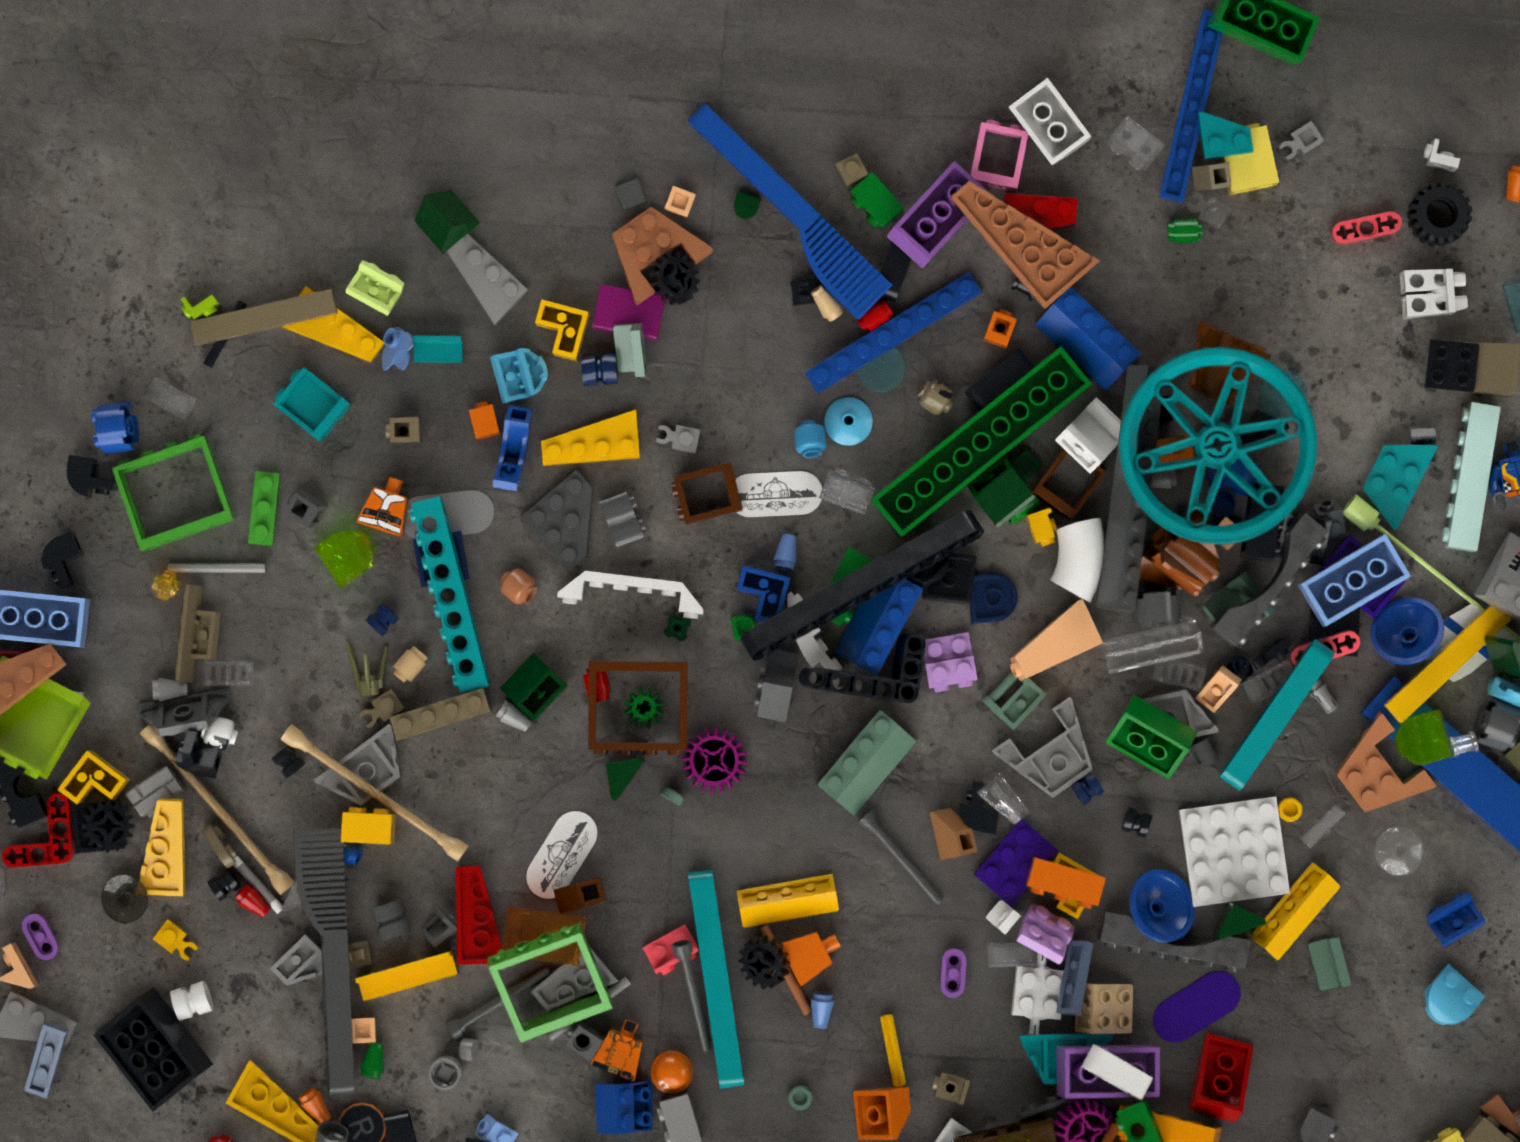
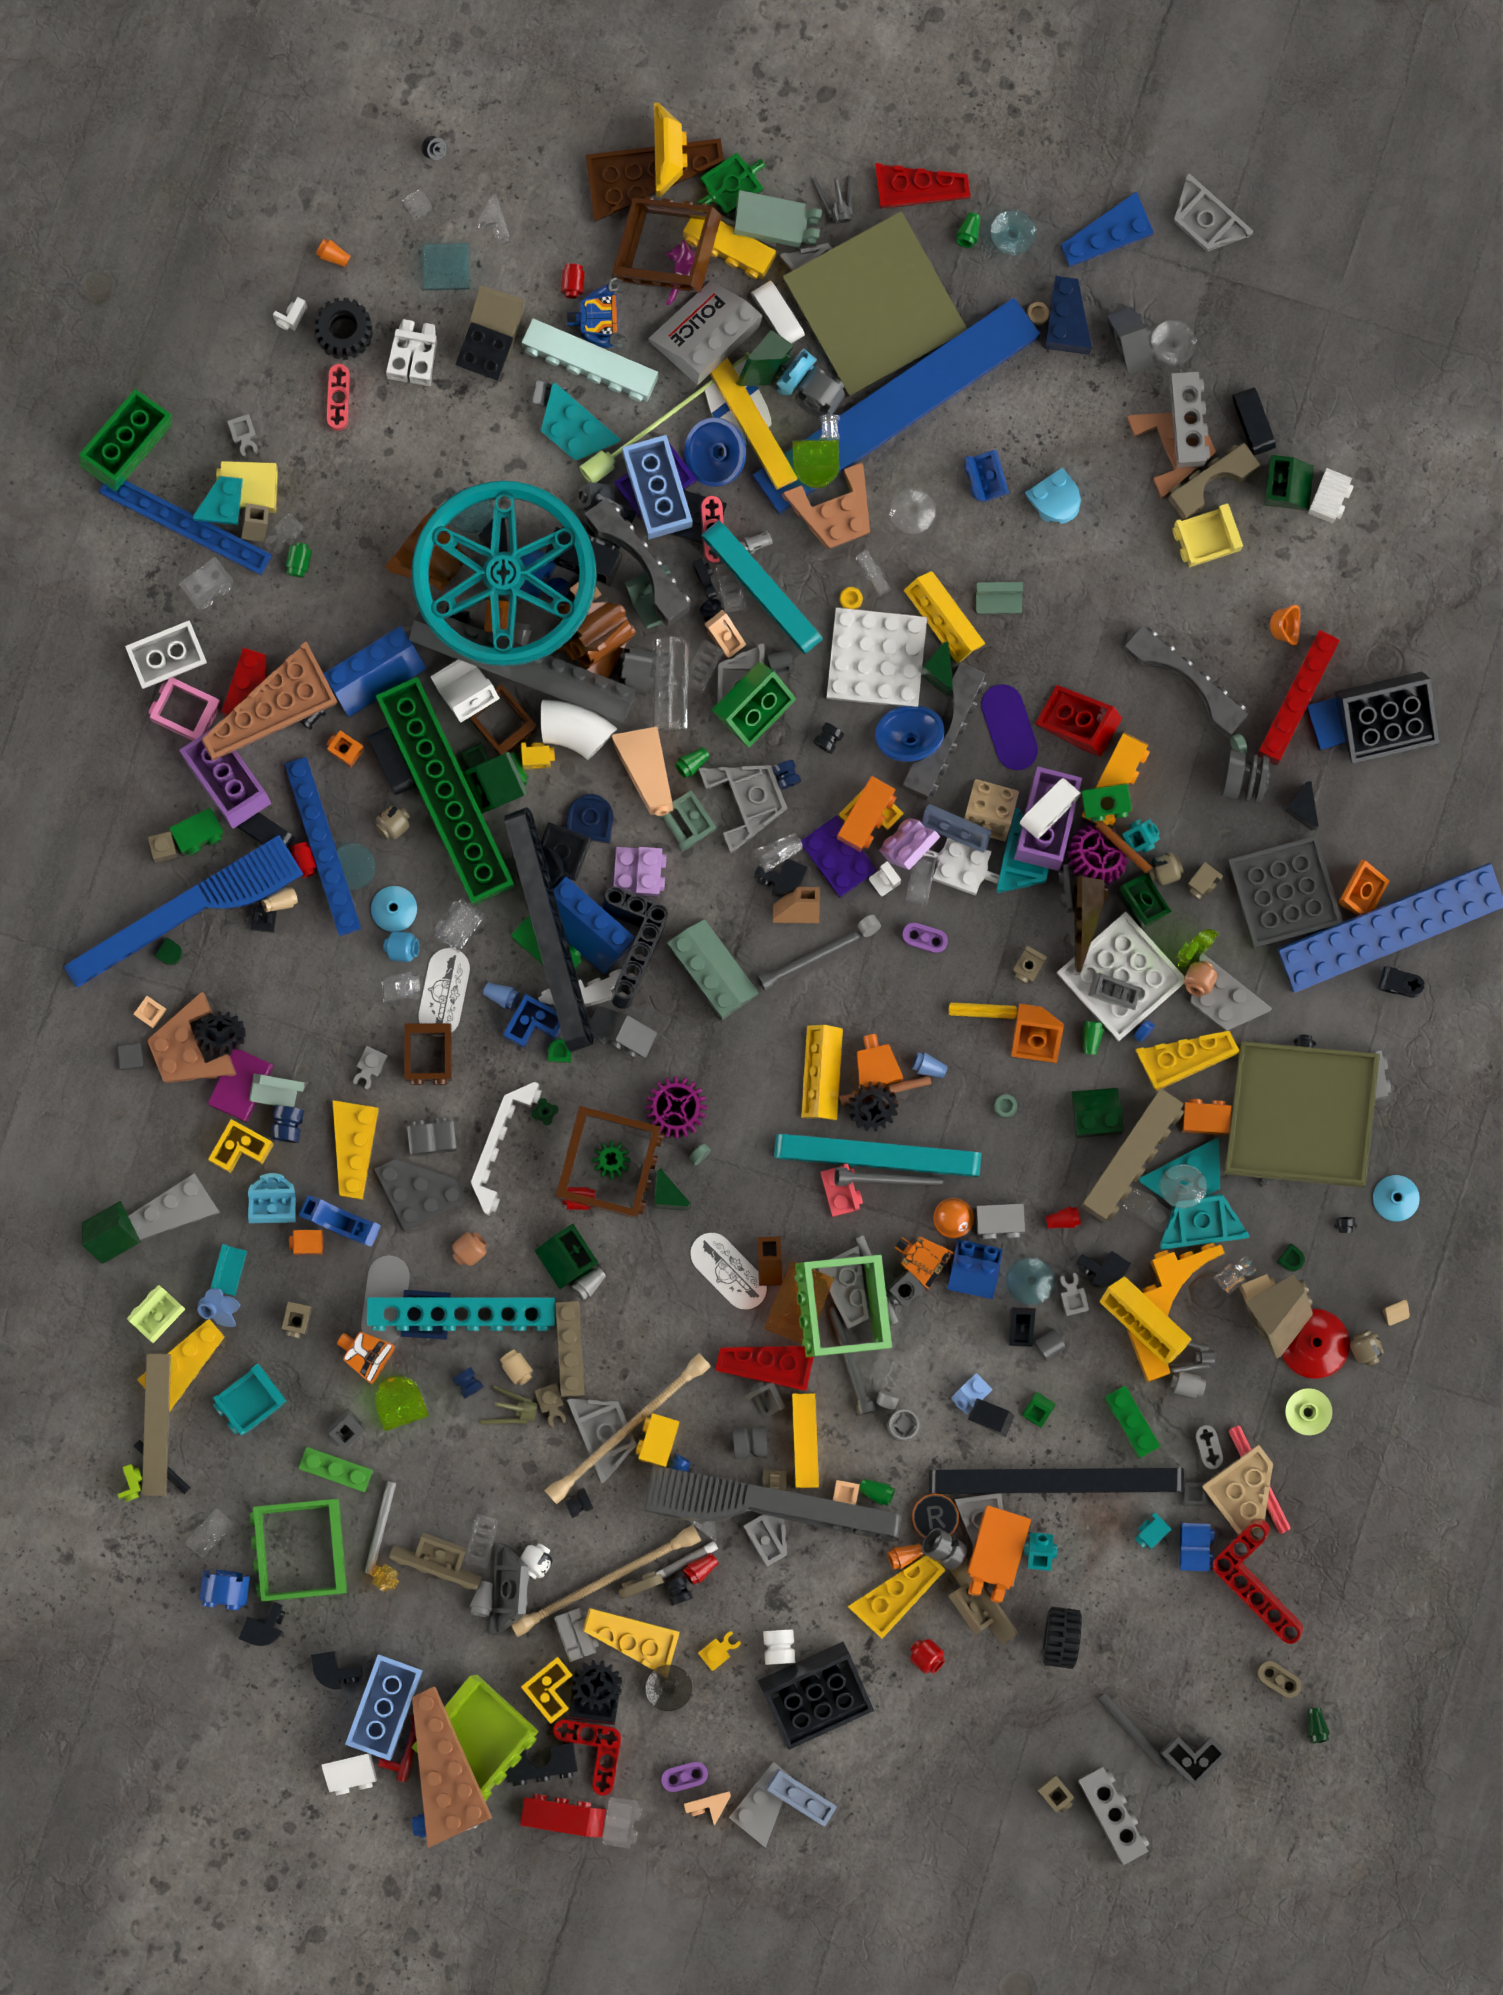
camera: 85 degrees left, 5 degrees down
(198, 757) = (554, 1585): black brick -> none
(768, 449) = (401, 987): none -> clear slope
(951, 912) = (869, 925): none -> light grey piece
(1075, 687) = (691, 762): none -> green cone

